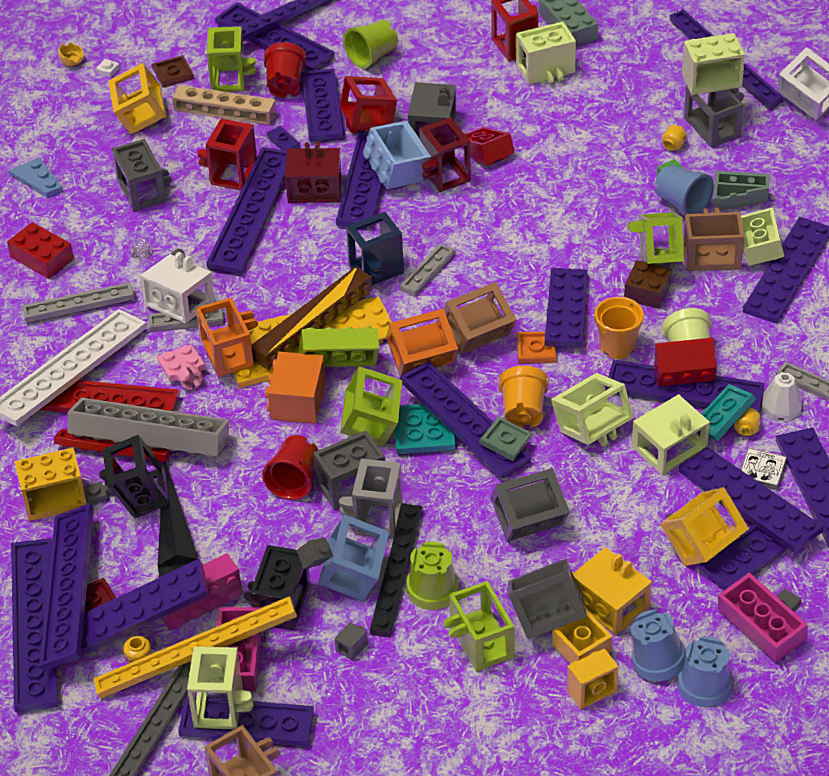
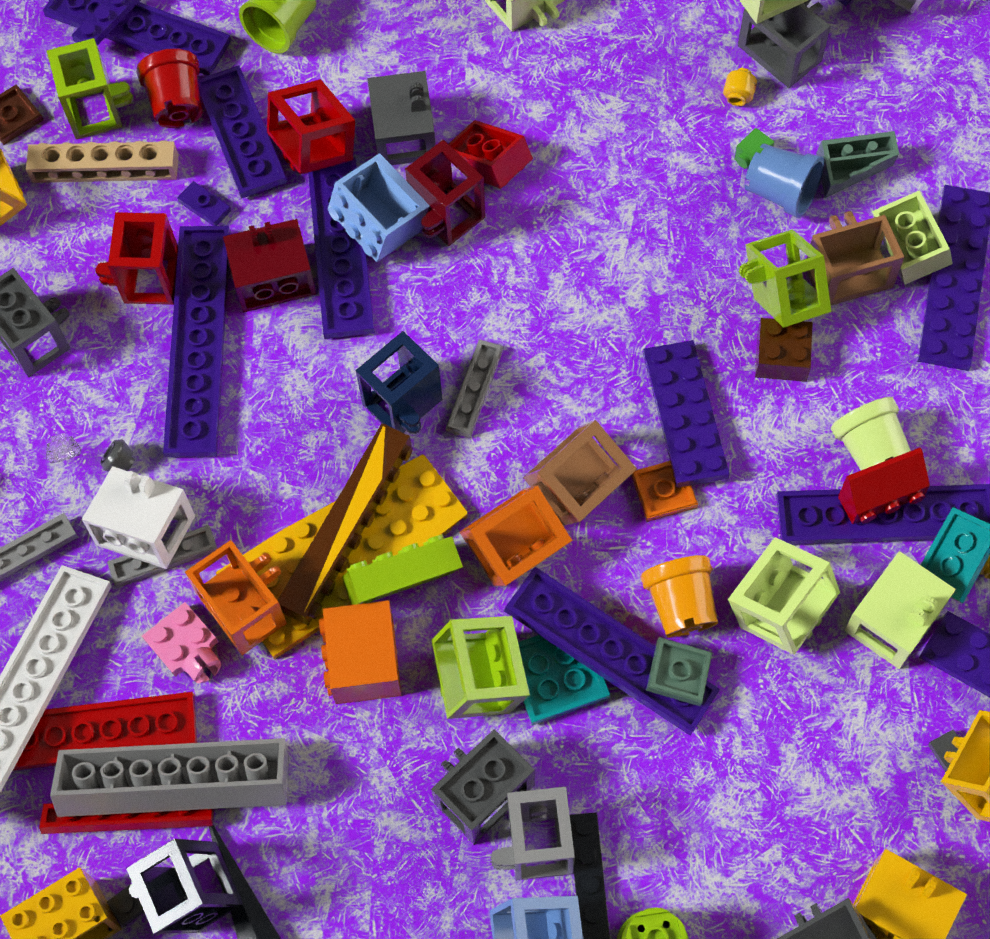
camera: 15 degrees left, 20 degrees up
(291, 469) = (400, 801): red piece -> none
(531, 506) = (753, 789): dark grey piece -> none
(618, 326) = (776, 439): light orange piece -> none

